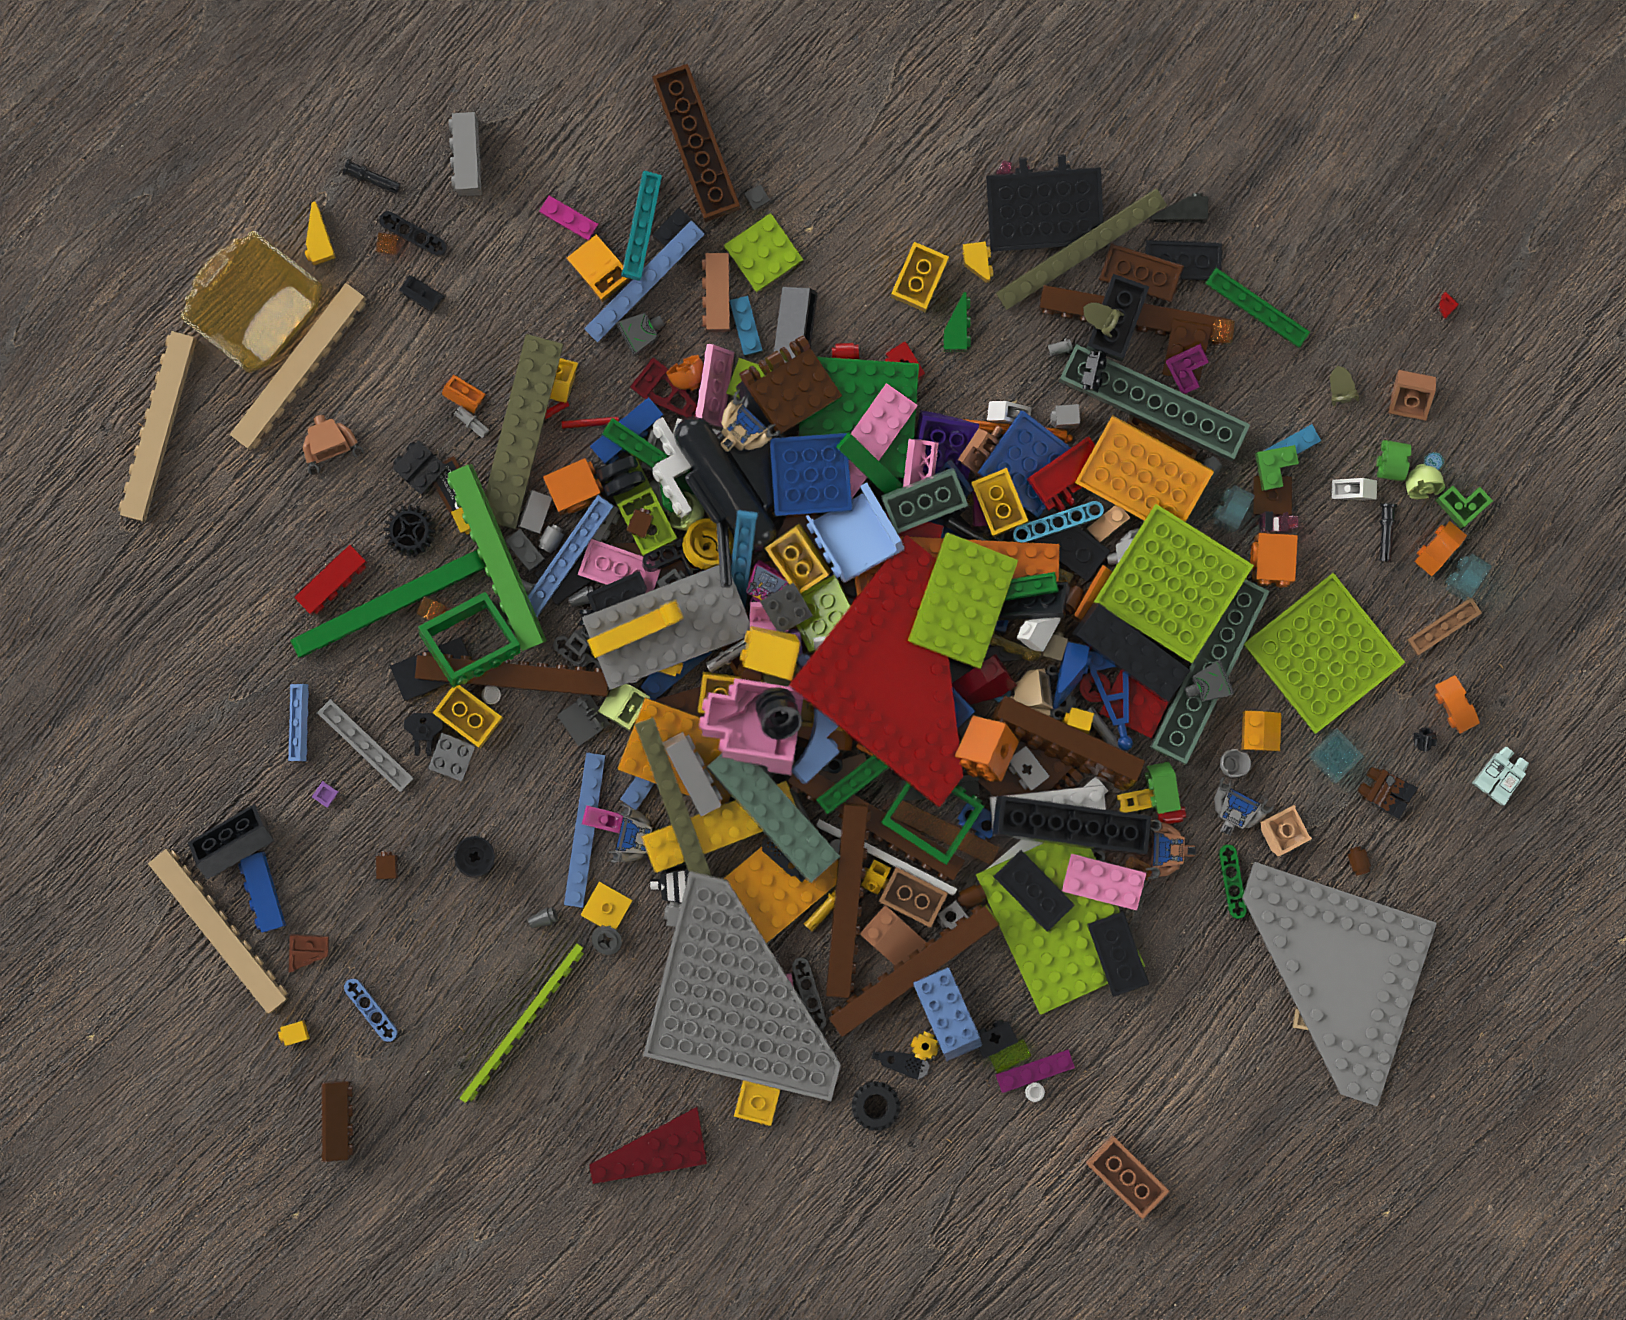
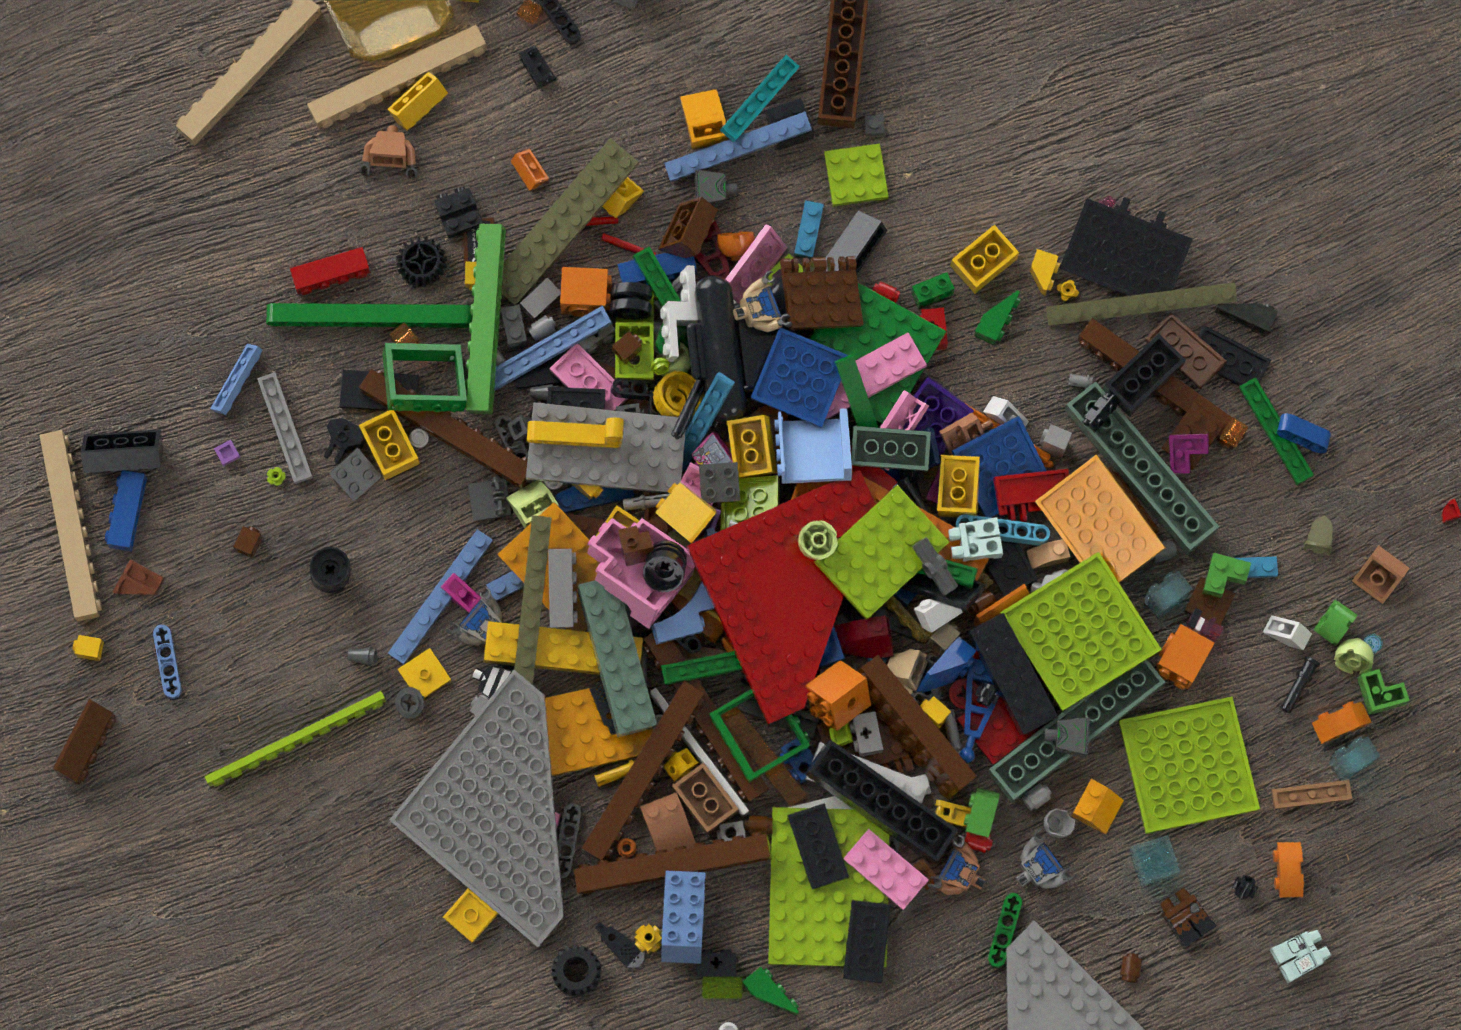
camera: 25 degrees right, 10 degrees down
(329, 381) = (417, 101): none -> yellow brick
(375, 793) = (276, 471): none -> lime plate
(471, 422) = (524, 195): light grey axle -> none
(568, 218) = (699, 64): dark pink plate -> none
(638, 381) = (688, 228): none -> reddish brown slope
(666, 1148) = (364, 916): dark red wing -> none
(678, 525) = (660, 366): none -> lime plate
(717, 292) = (798, 188): nougat brick -> none
(742, 708) = (634, 545): none -> reddish brown brick
(858, 973) = (626, 841): none -> orange plate
(886, 329) = (932, 290): none -> green brick
(911, 621) = (825, 540): none -> yellowish green cylinder
(1007, 262) = (1067, 285): none -> yellow plate
(1007, 783) = (842, 736): none -> lime plate
(1017, 590) = (934, 566): none -> dark grey piece
(1035, 1071) = (738, 1013): magenta plate -> none
(1036, 549) = (977, 540): none -> light aqua hips
(1050, 1040) = (765, 990): none -> green slope
(1102, 317) = (1130, 364): olive piece -> none
(1118, 681) = (987, 695): none -> black gear
(1204, 748) = (1037, 796): none -> light grey brick
(1284, 298) = (1303, 433): none -> blue beam
(1284, 831) = (1075, 906): light nougat slope -> none

